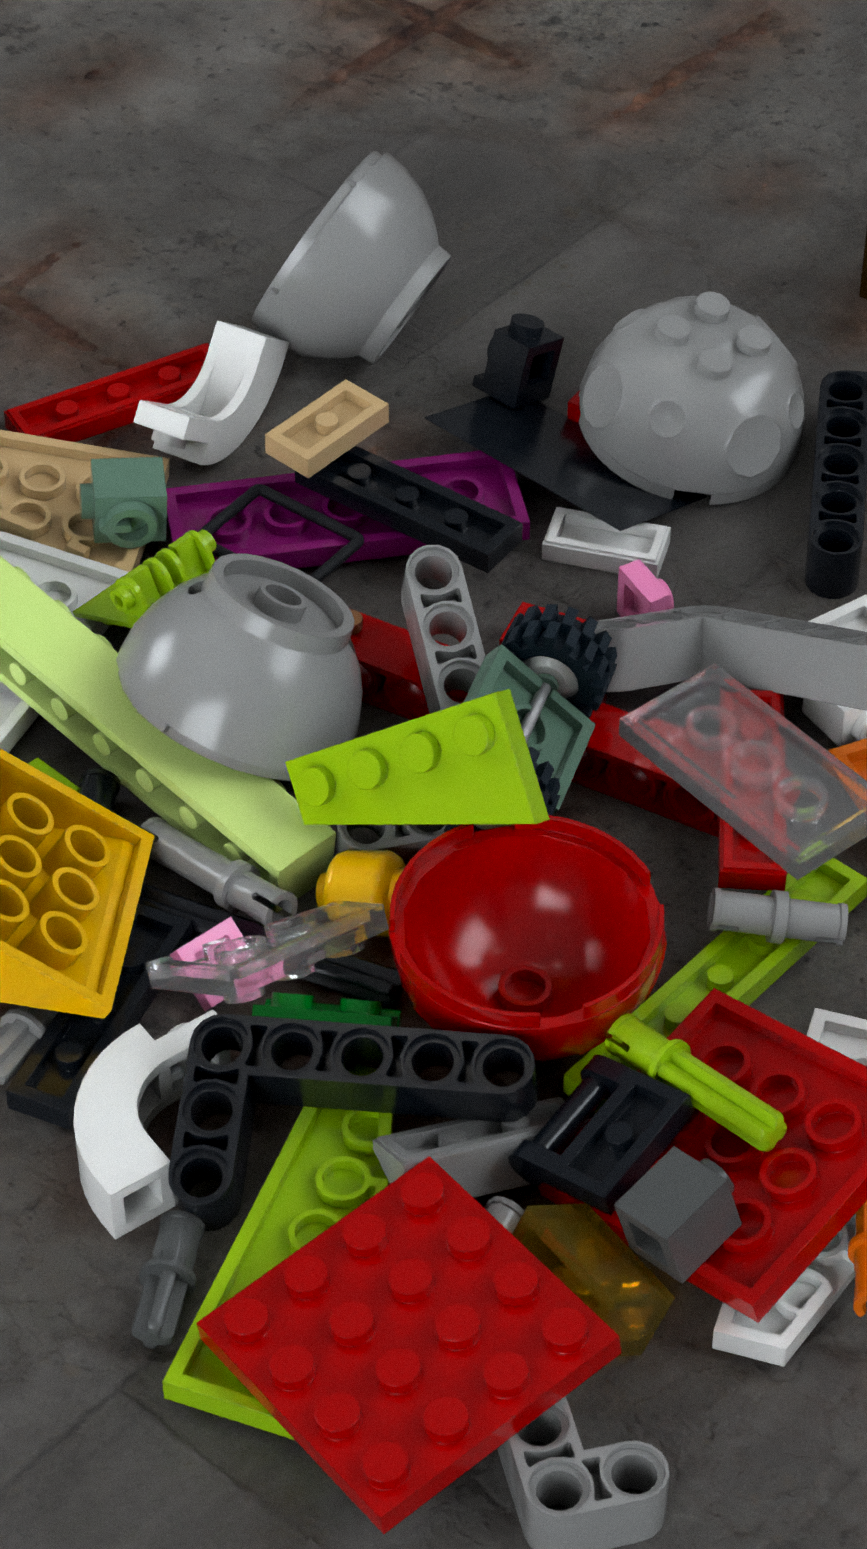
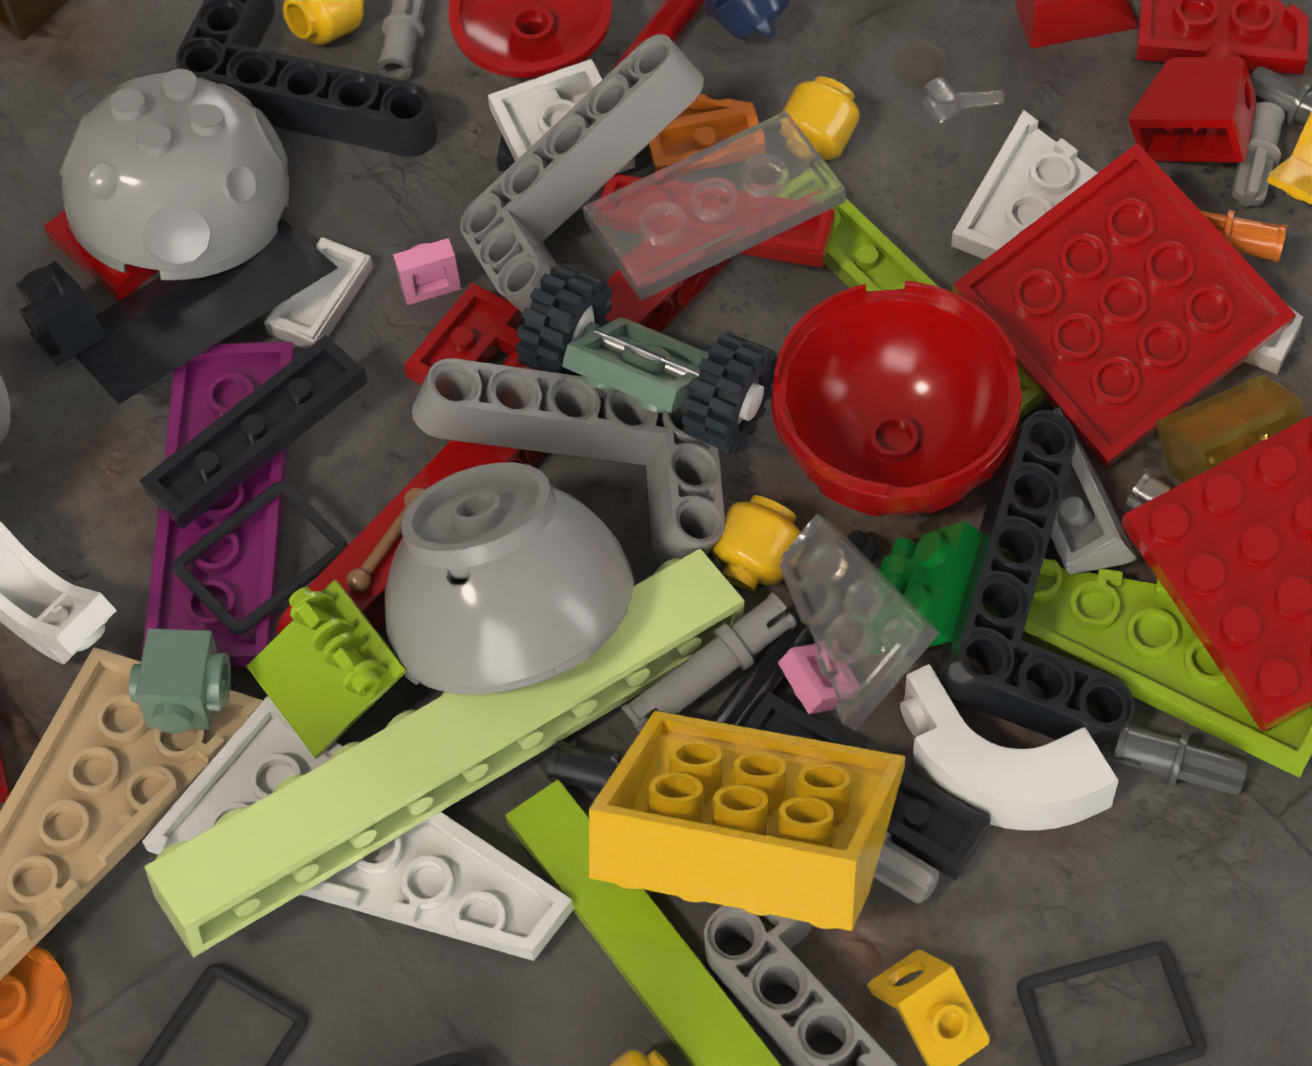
camera: 75 degrees left, 15 degrees up
(326, 428) = (154, 472): tan plate -> none
(430, 770) = (731, 419): lime wing -> none
(616, 1142) = (1114, 376): black plate -> none
(679, 1213) = (1213, 340): dark grey brick -> none
(709, 1090) = (1050, 322): lime axle -> none
(777, 916) = (866, 231): light grey pin -> none

